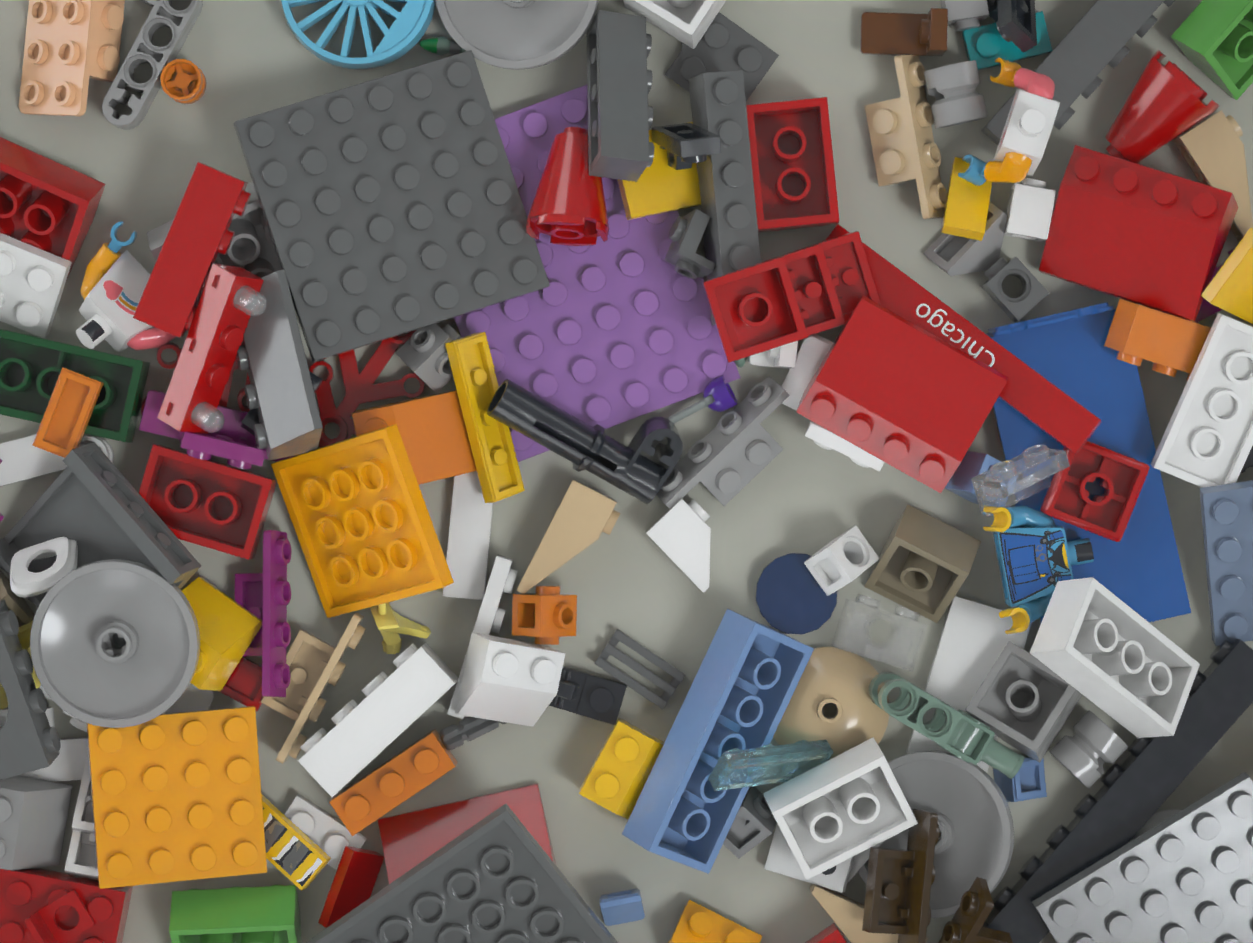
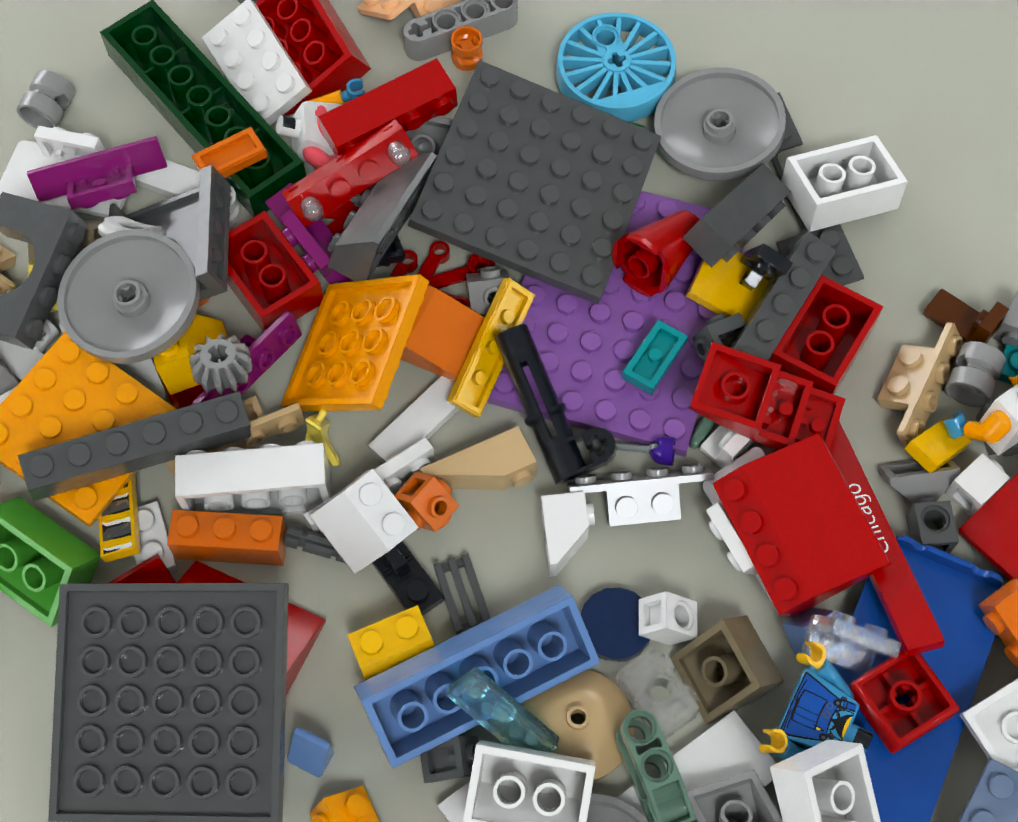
camera: 30 degrees right, 25 degrees down
(254, 657) = (221, 363): none -> light grey gear
(257, 781) = (134, 446): none -> dark grey brick
(646, 310) = (654, 357): none -> teal plate

